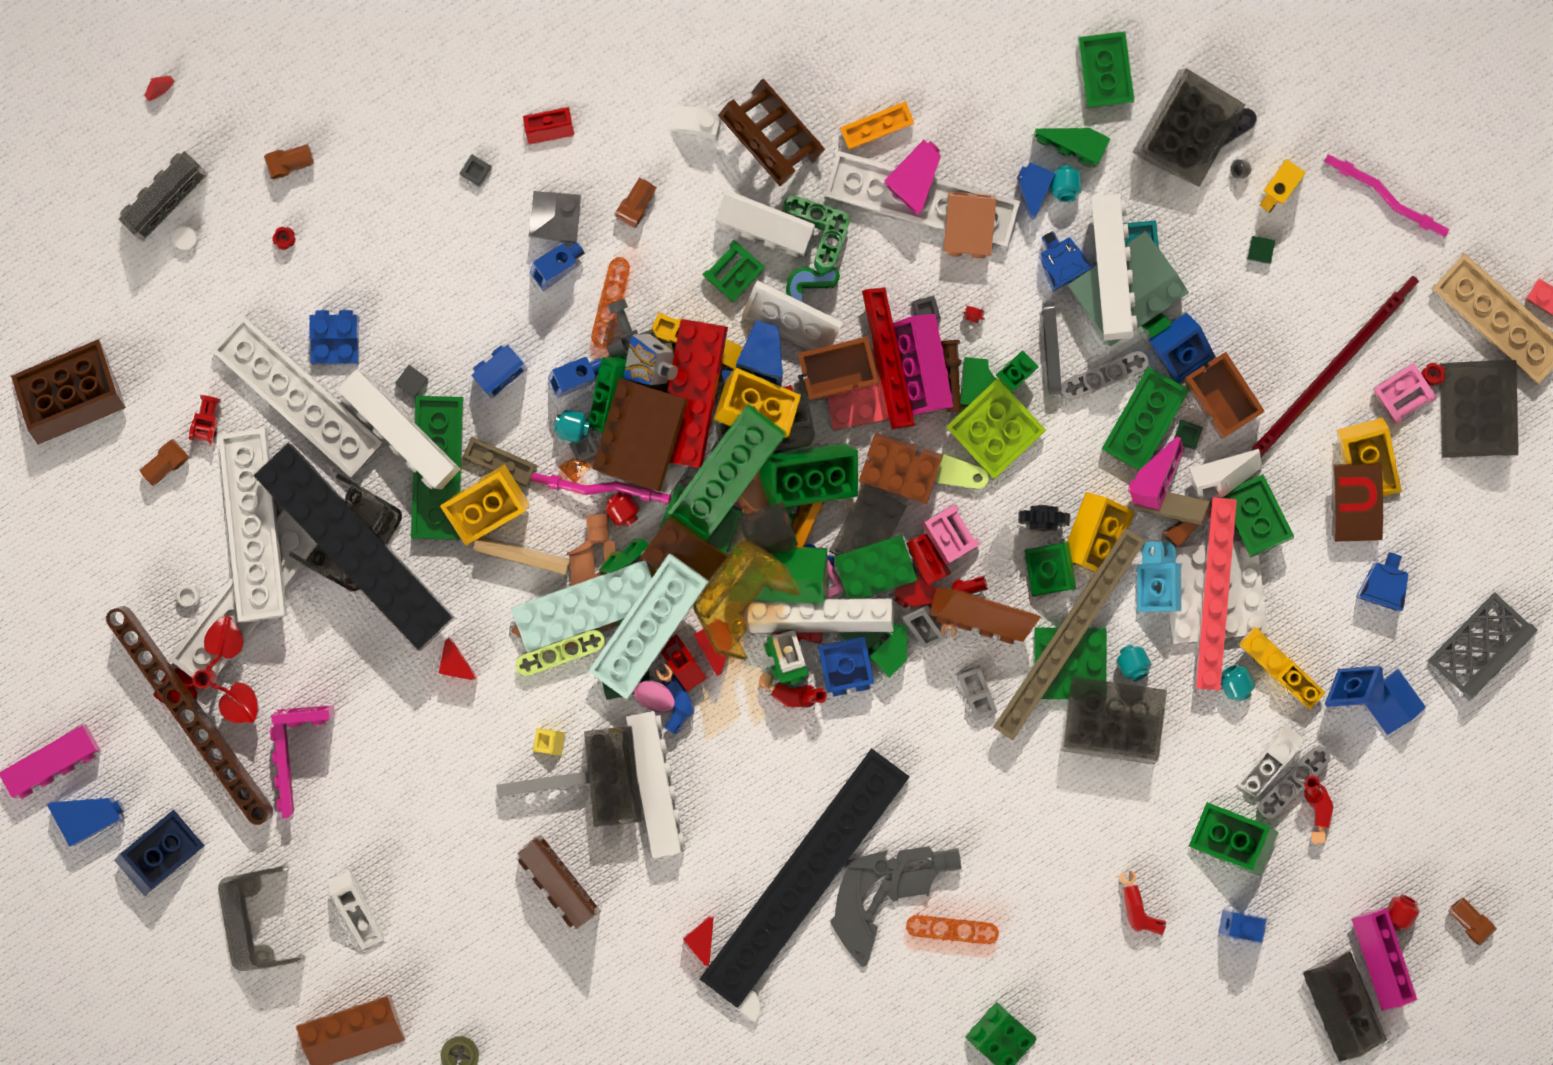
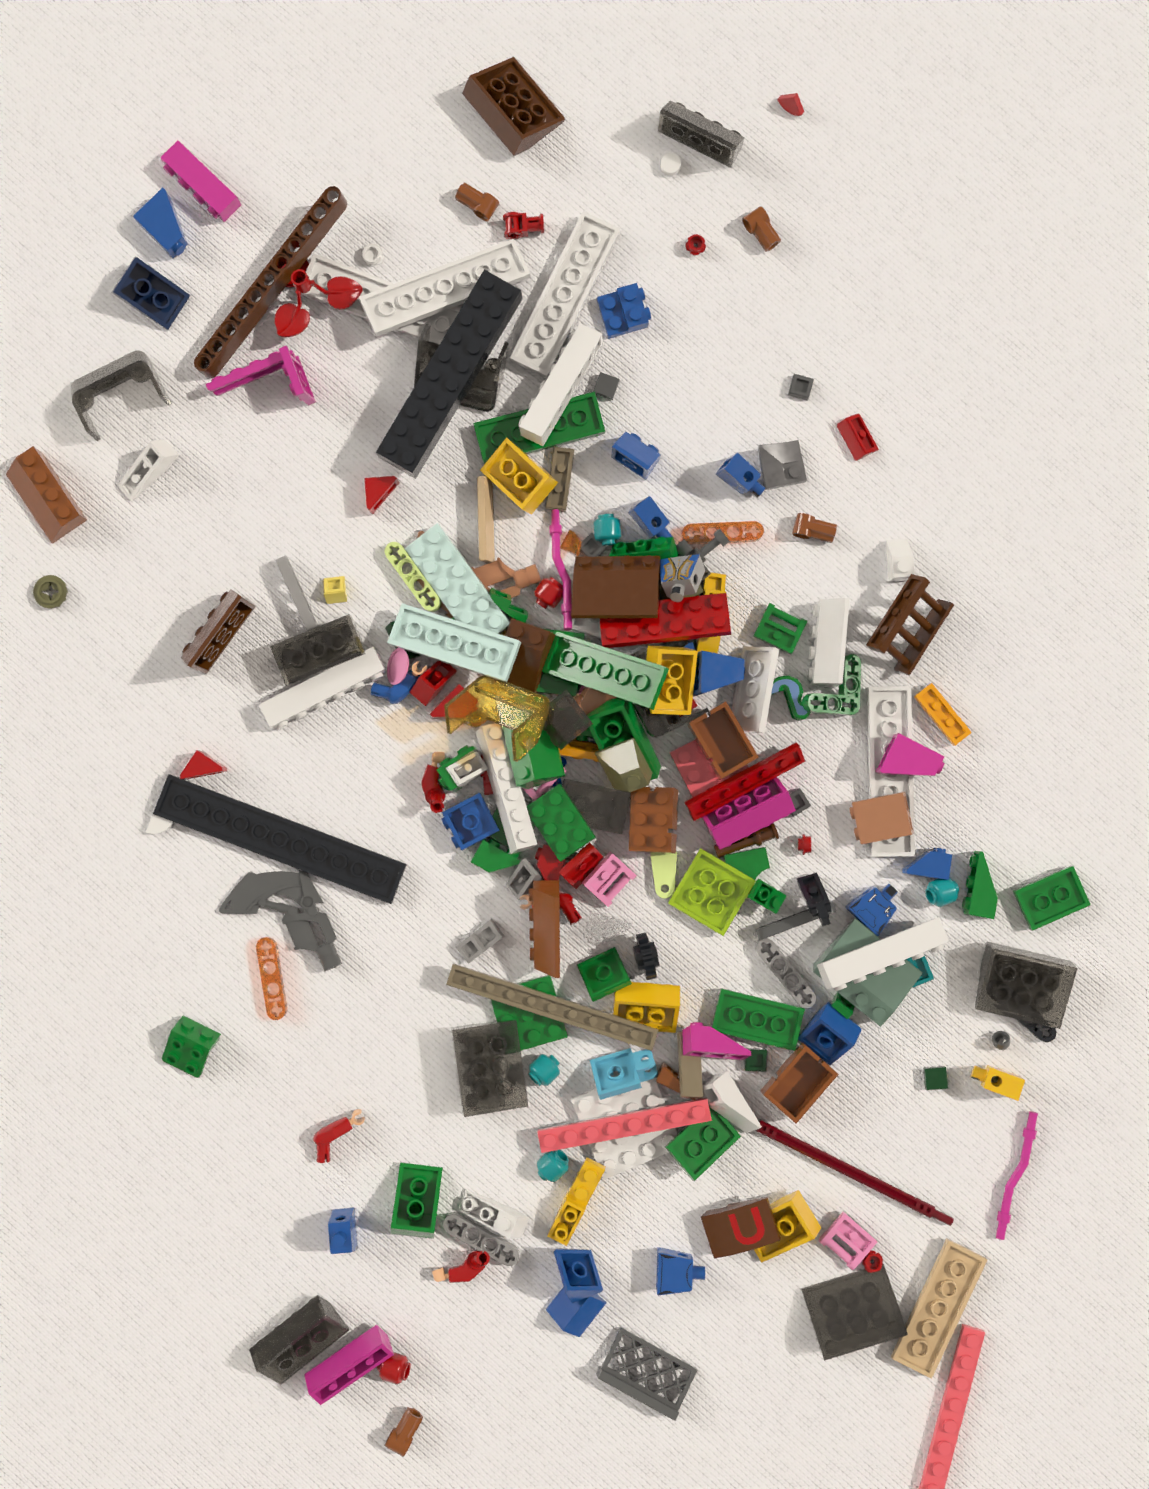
camera: 75 degrees right, 0 degrees up
(835, 480) = (625, 766): none -> olive slope
(1033, 320) = (815, 897): none -> black hinge

